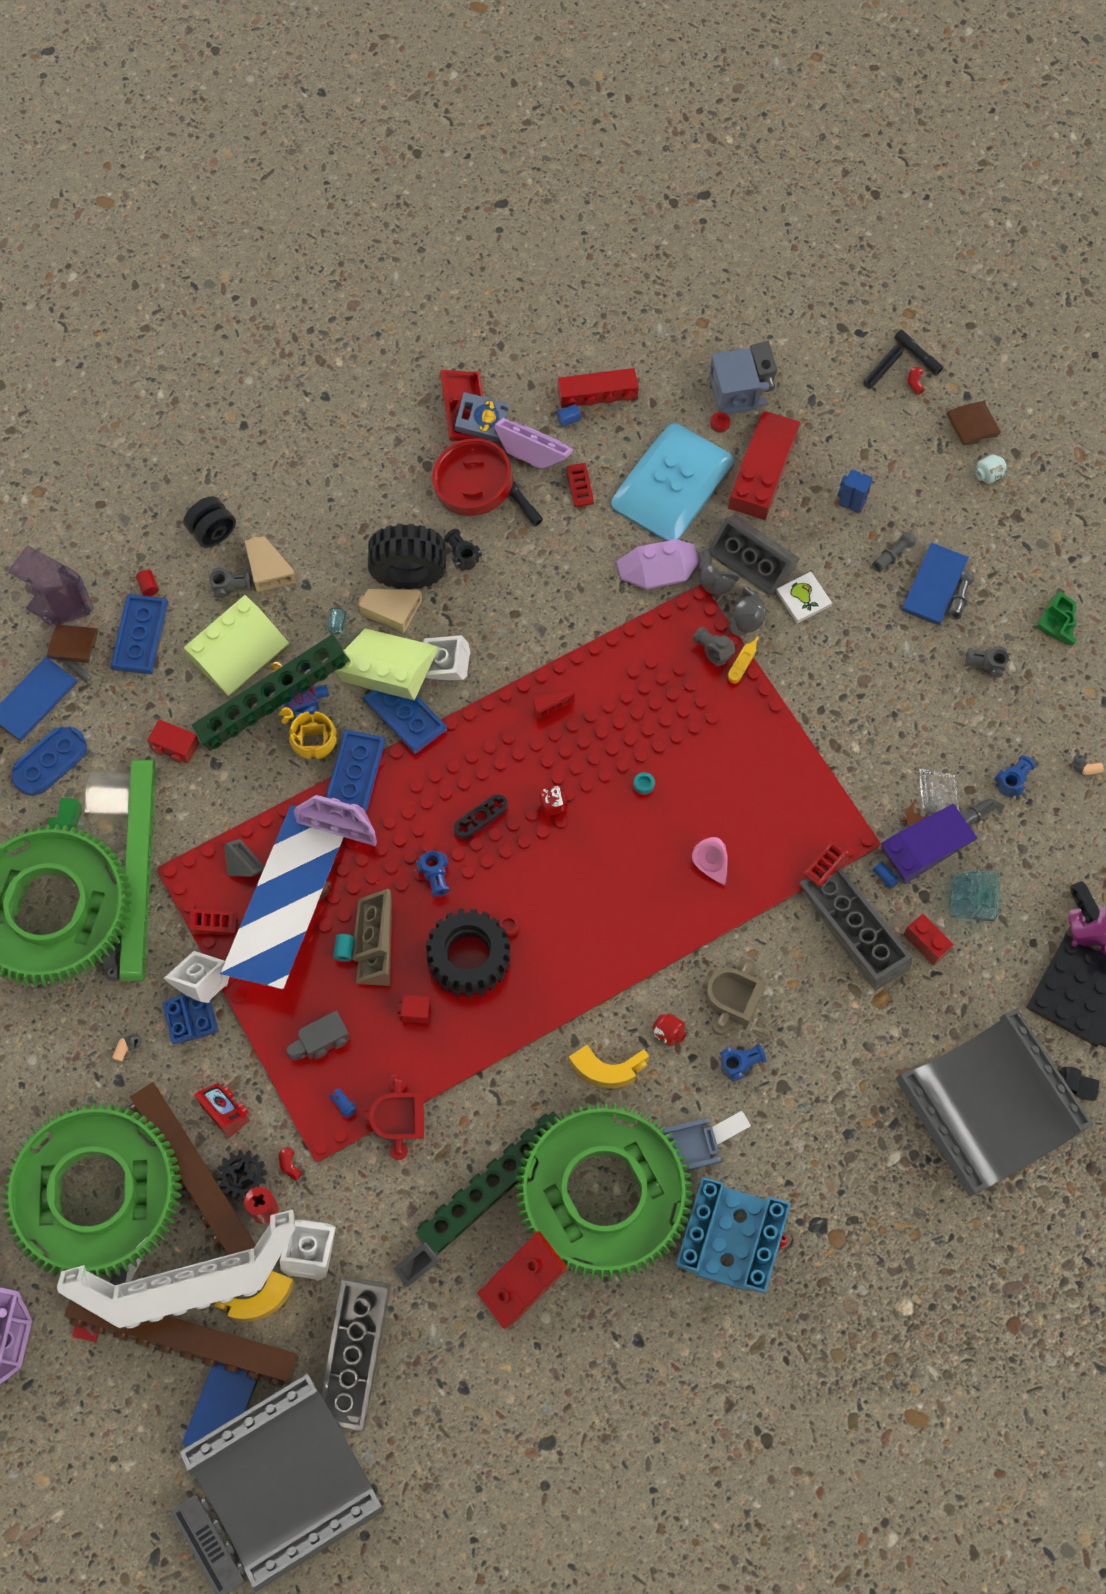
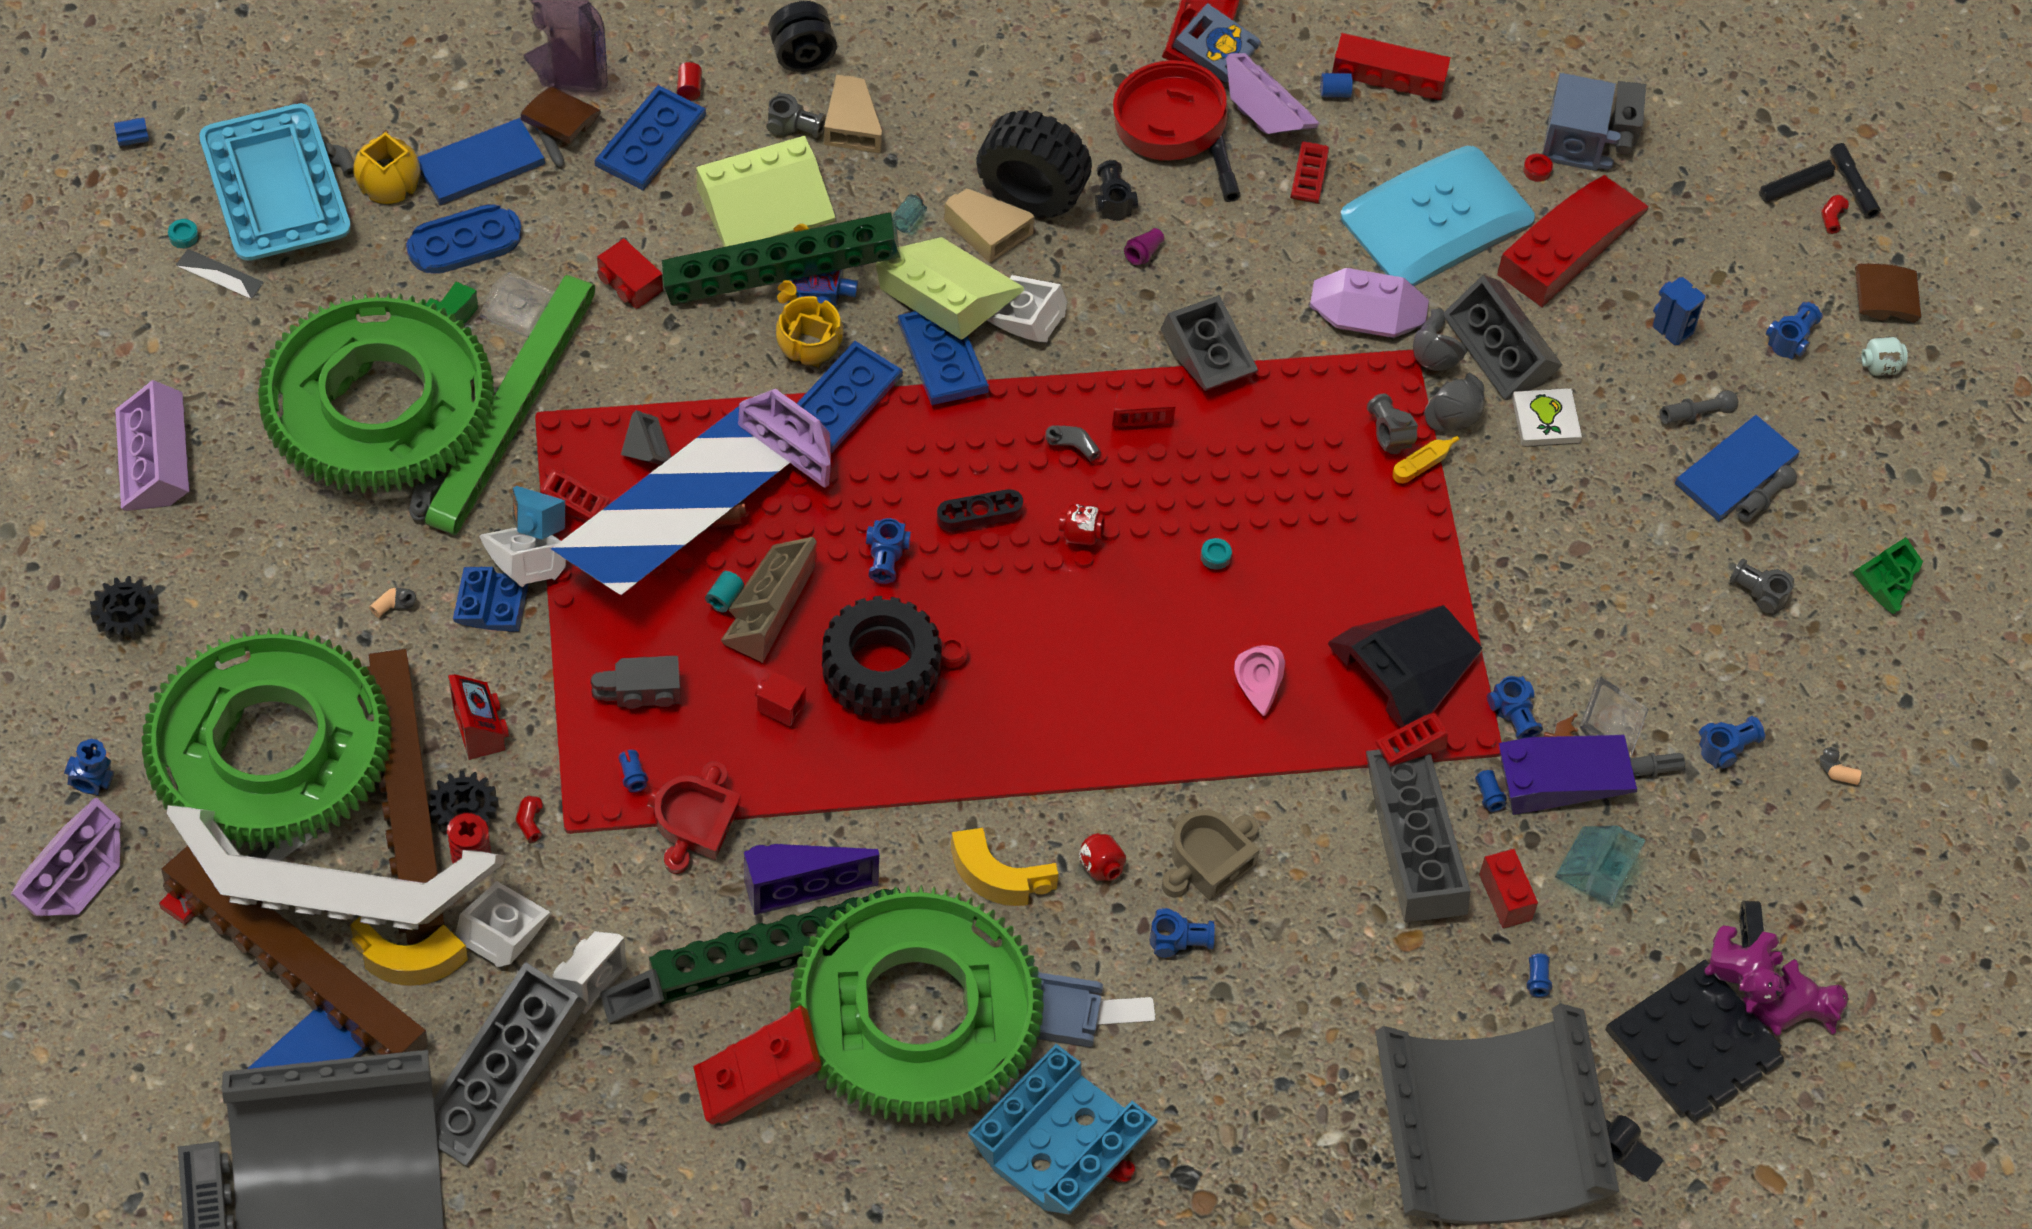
camera: 20 degrees right, 10 degrees down
(194, 945) = (537, 513): none -> dark azure slope
(380, 1256) = (593, 966): none -> white slope
(480, 1132) = (798, 874): none -> dark purple slope
(498, 583) = (1142, 247): none -> magenta cone
(516, 739) = (1075, 437): none -> dark grey arm
(574, 637) = (1208, 343): none -> dark grey slope
(799, 806) = (1411, 658): none -> black wedge
(877, 812) = (1515, 708): none -> blue connector
(930, 473) = (1790, 333): none -> blue connector
(972, 990) = (1539, 982): none -> blue pin

